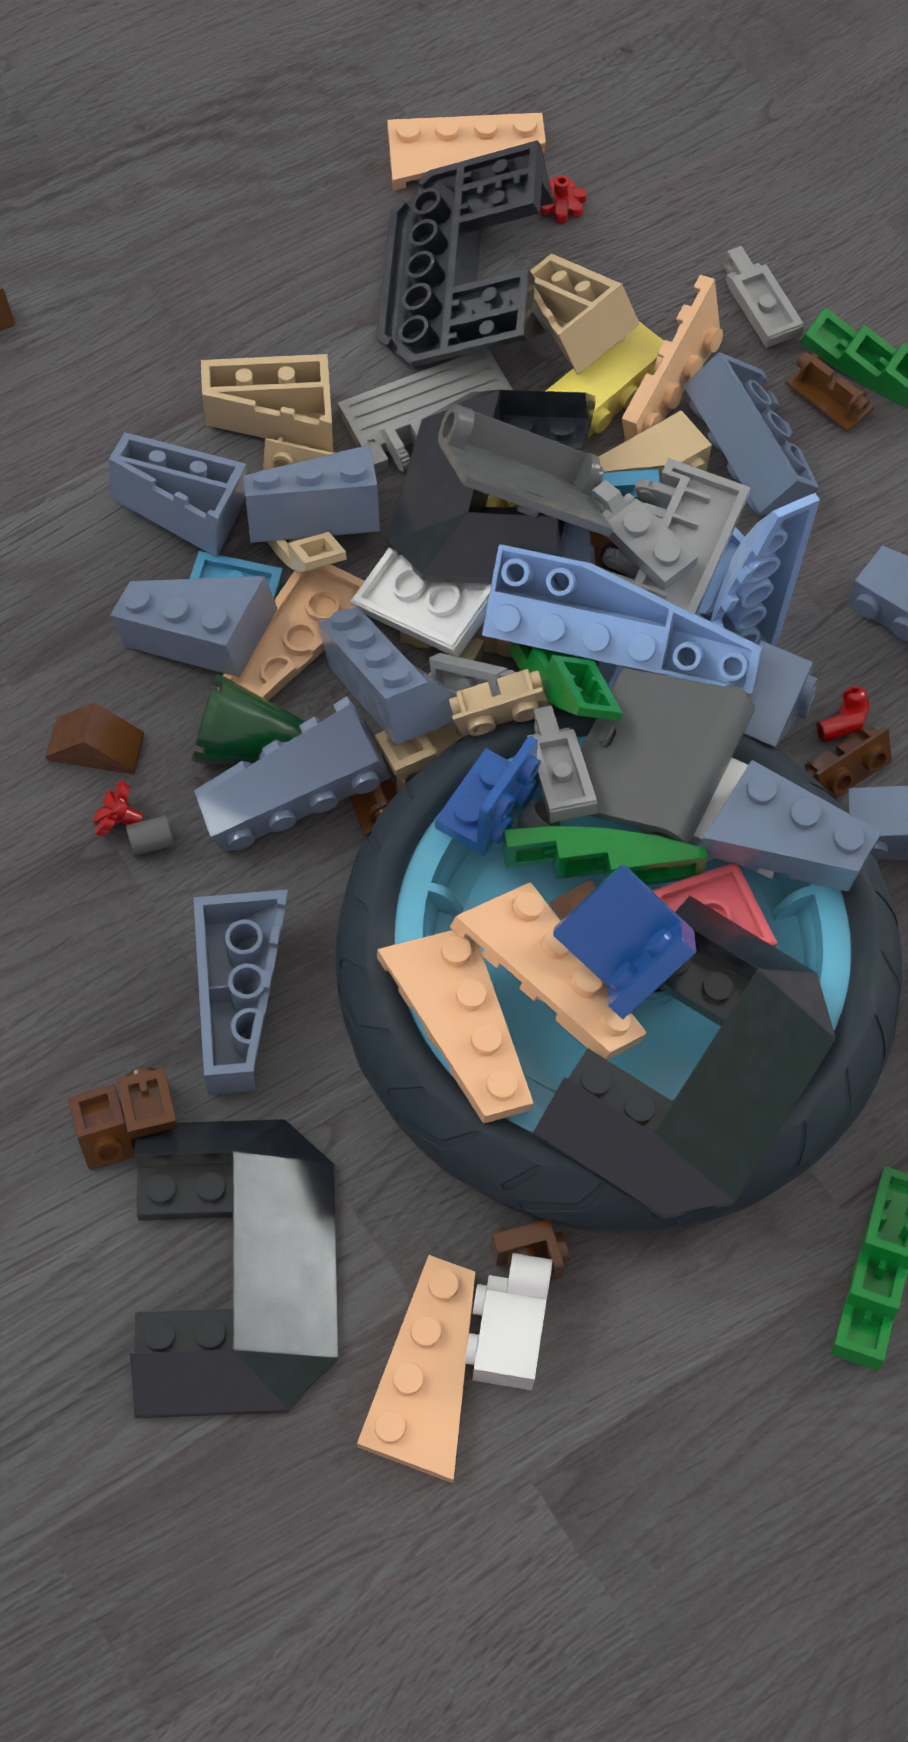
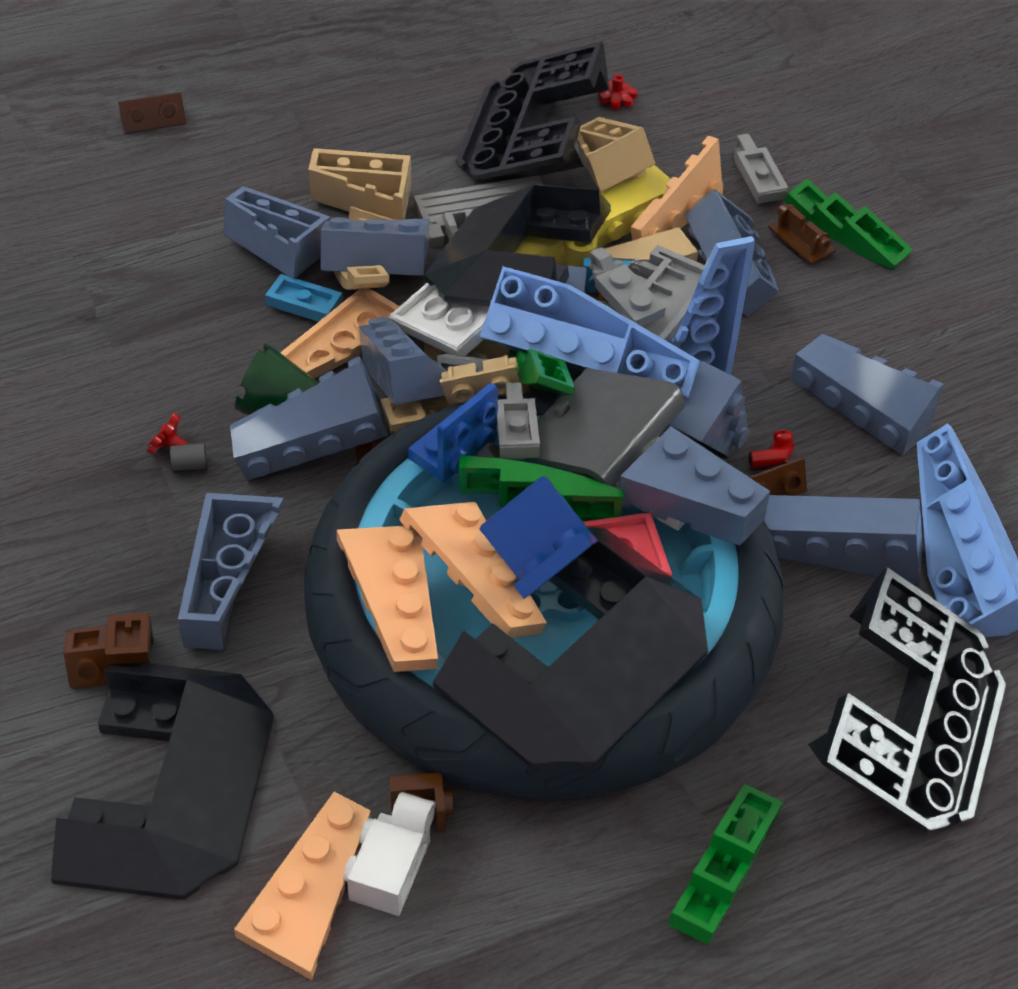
camera: 10 degrees right, 15 degrees down
(95, 740) = (166, 388): reddish brown slope -> none
(196, 620) = (265, 313): sand blue wedge -> none
(441, 141) = (518, 47): light nougat wing -> none
(523, 468) = (537, 224): dark grey door -> none

